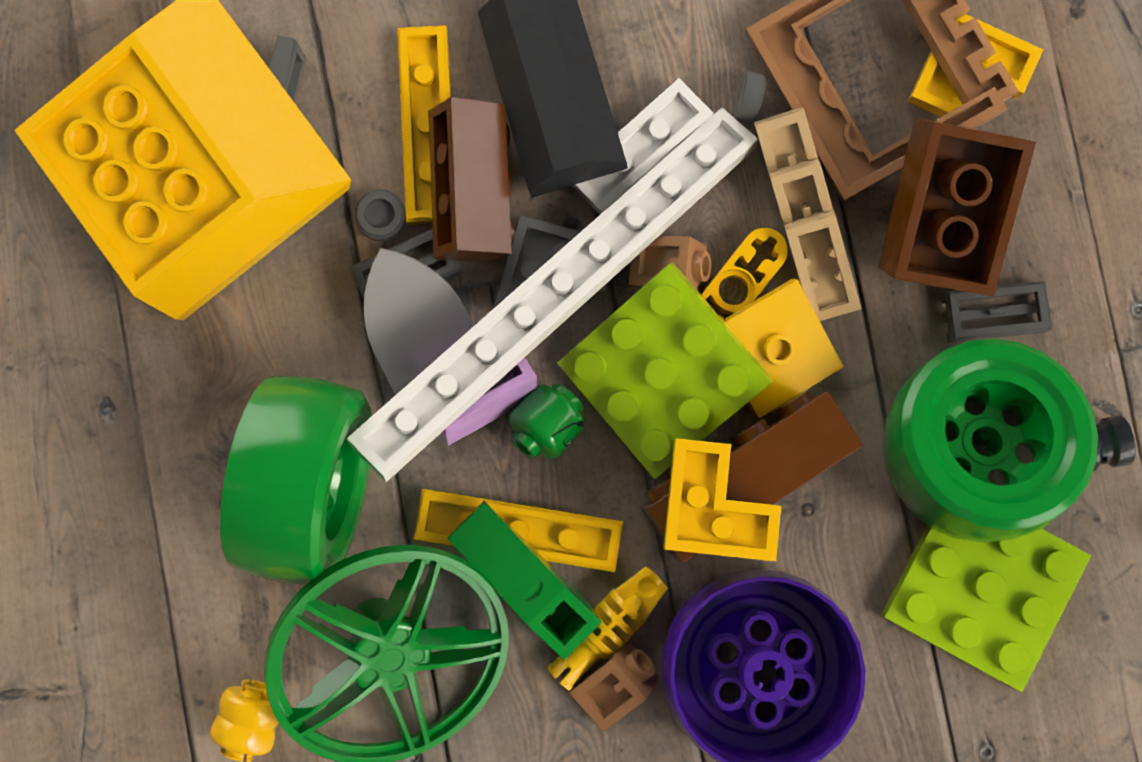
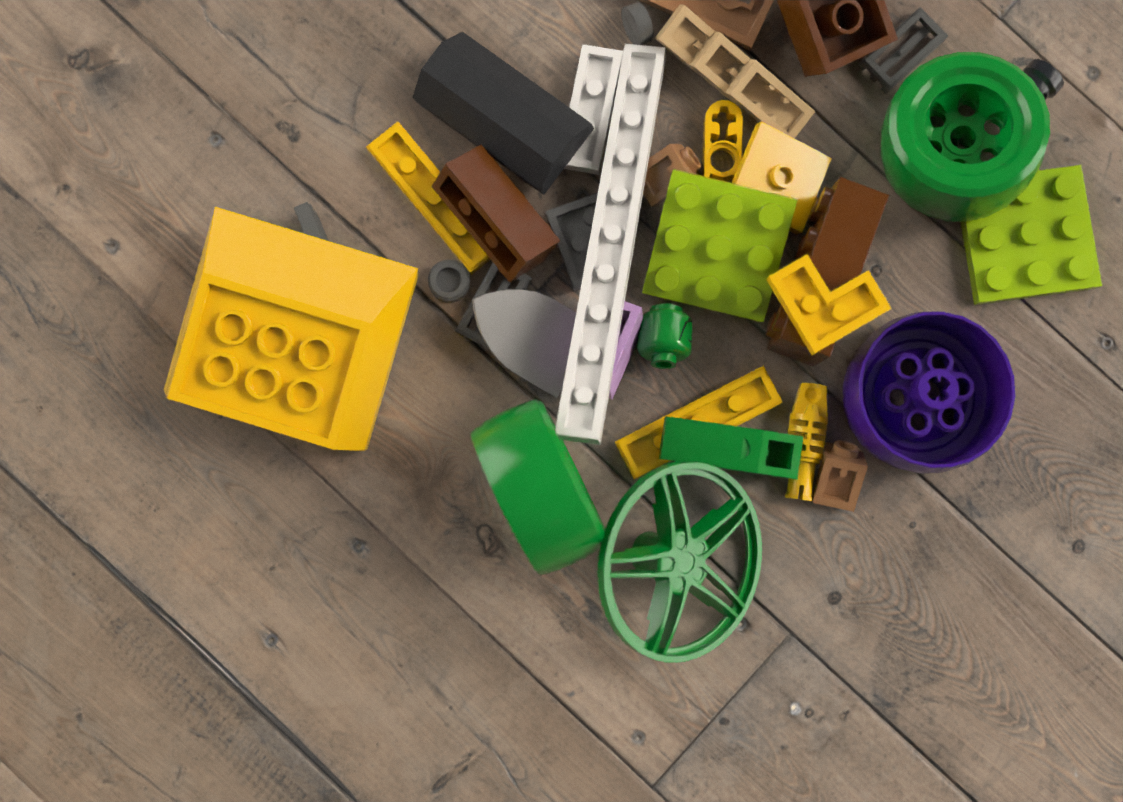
camera: 40 degrees left, 0 degrees up
(244, 722) = (615, 678): yellow piece -> none

